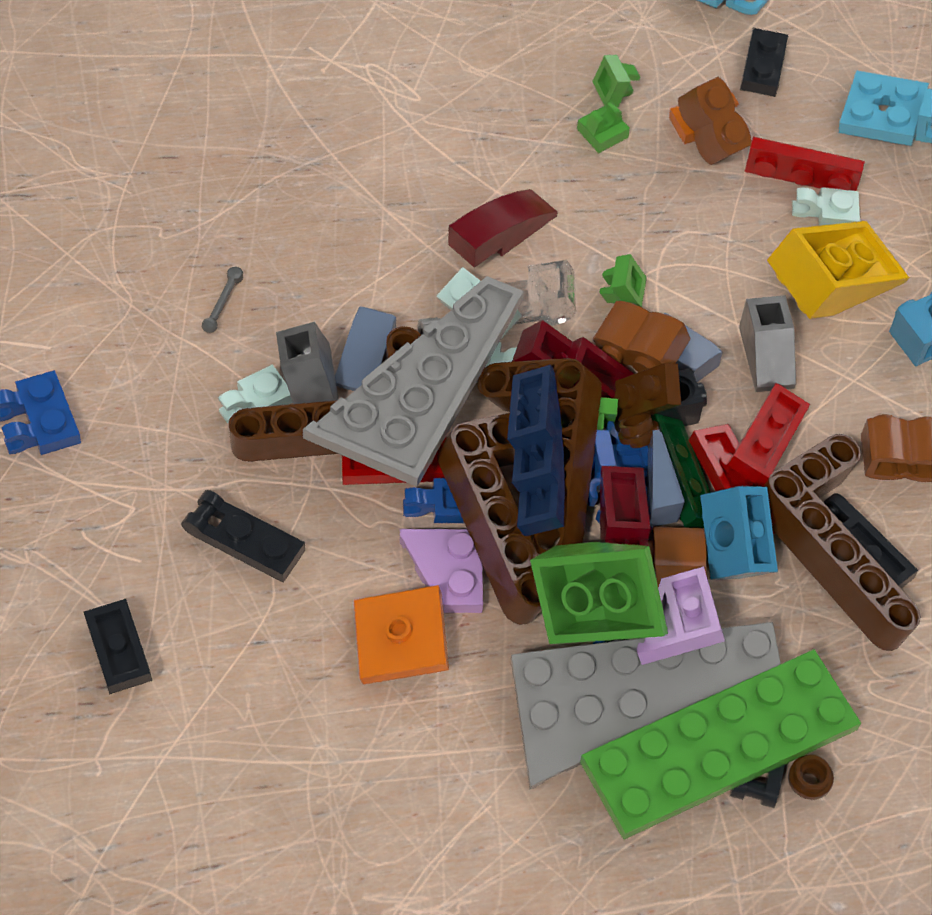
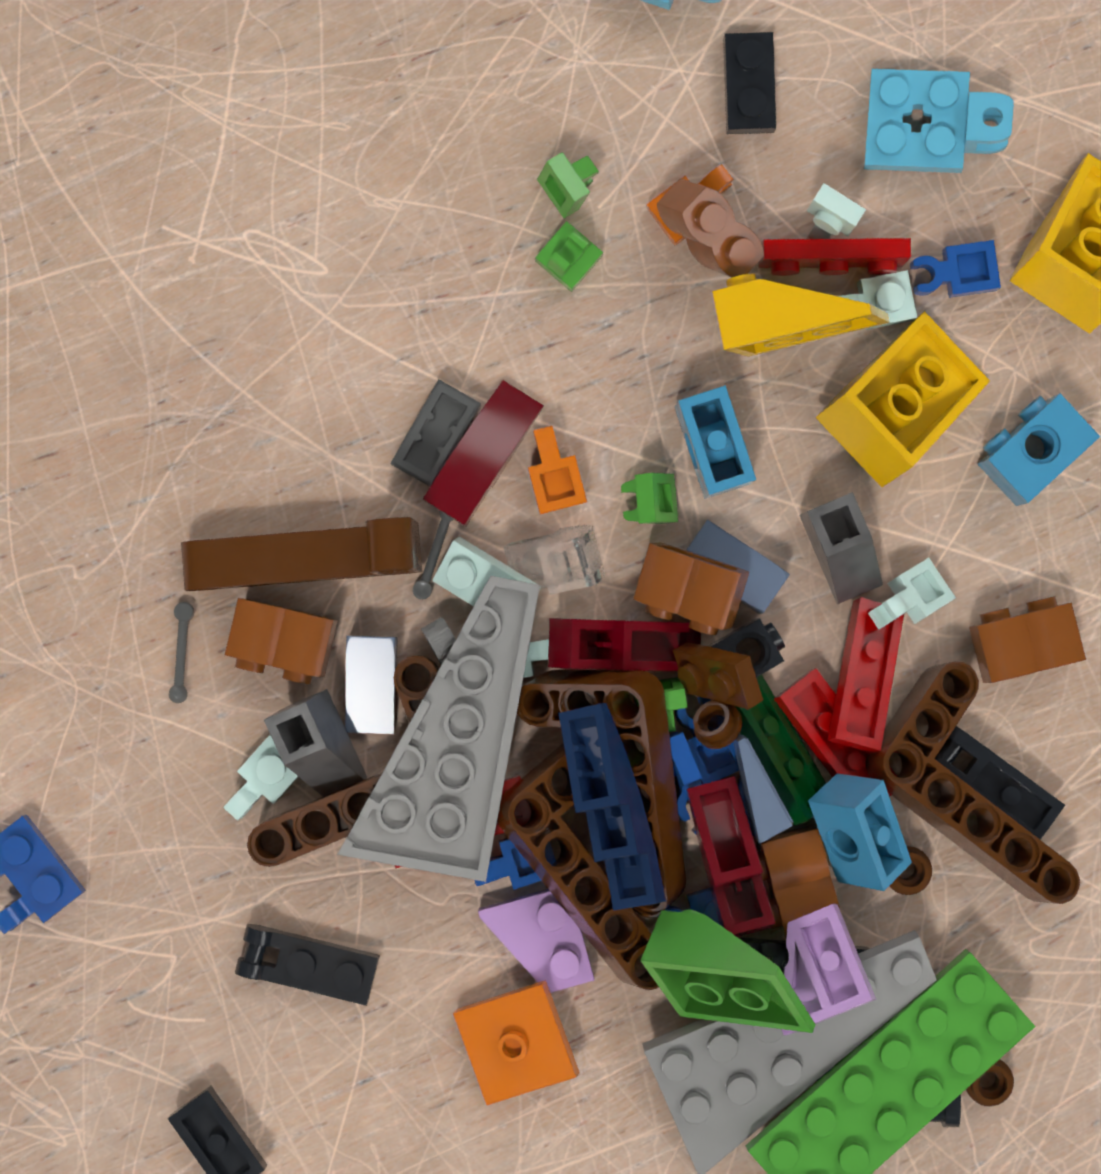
camera: 15 degrees left, 30 degrees up
(301, 297) = (281, 639): none -> dark orange brick
(353, 256) = (373, 550): none -> reddish brown beam
(426, 304) = (423, 589): none -> dark grey hinge
(467, 198) = (435, 433): none -> dark grey plate
(552, 245) = (557, 479): none -> orange plate
(684, 252) = (714, 442): none -> dark azure brick
(766, 177) = (773, 316): none -> yellow slope
(776, 583) = (920, 877): none -> reddish brown plate
(811, 127) = (833, 213): none -> light aqua plate
(821, 391) = (917, 592): none -> light aqua plate
(901, 199) = (964, 268): none -> blue plate

